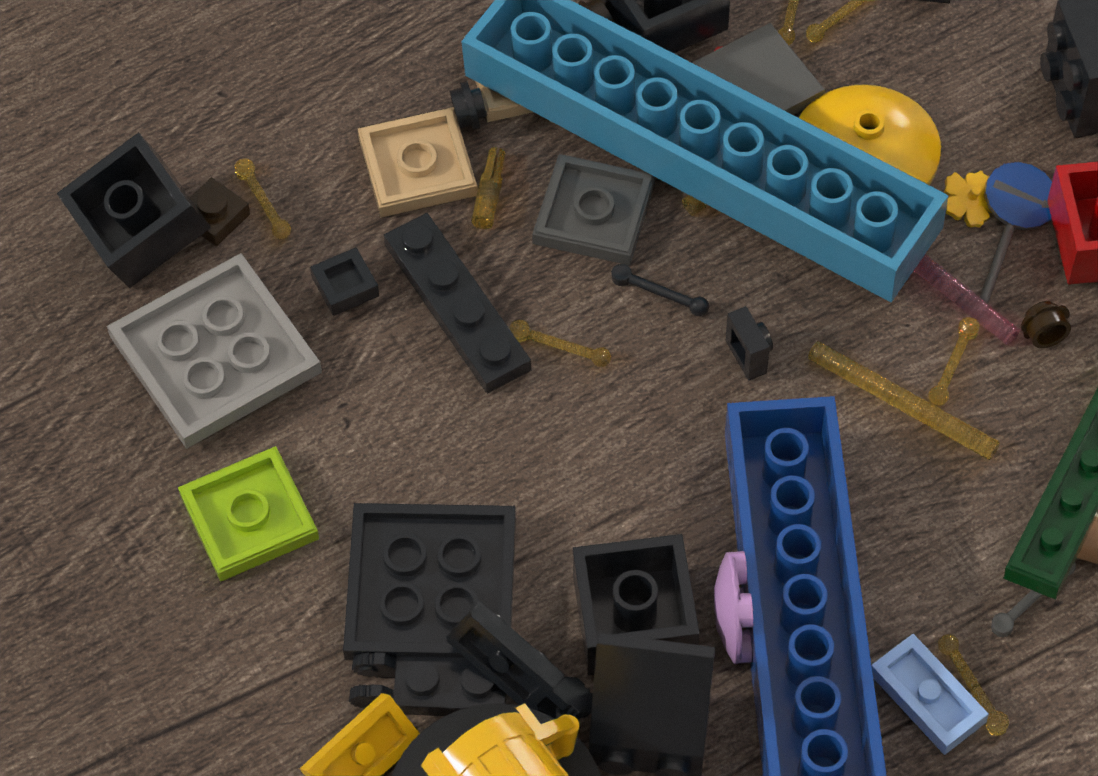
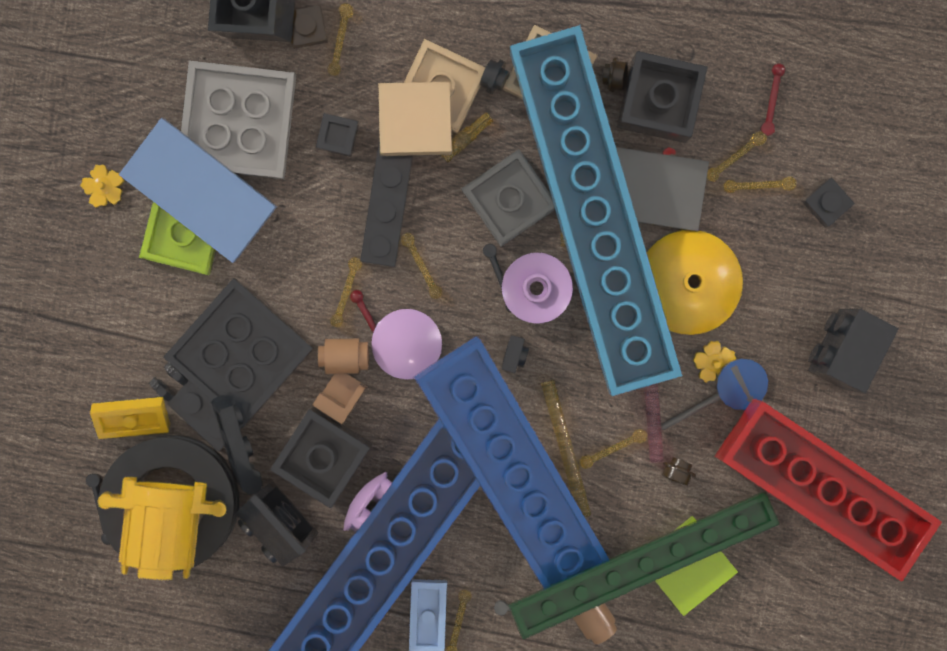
camera: 35 degrees right, 30 degrees up
(107, 538) = (103, 186): none -> yellow plant
(232, 440) = (197, 190): none -> medium blue tile
(419, 196) = (415, 118): none -> tan tile
(483, 400) = (355, 265): none -> clear yellow hinge
(559, 489) = (344, 356): none -> medium nougat brick
(594, 527) = (340, 397): none -> medium nougat panel
(597, 456) = (357, 297): none -> dark red hinge
(619, 428) = (406, 343): none -> lavender dish
(712, 244) = (555, 283): none -> lavender dish
(858, 419) = (510, 463): none -> blue plate

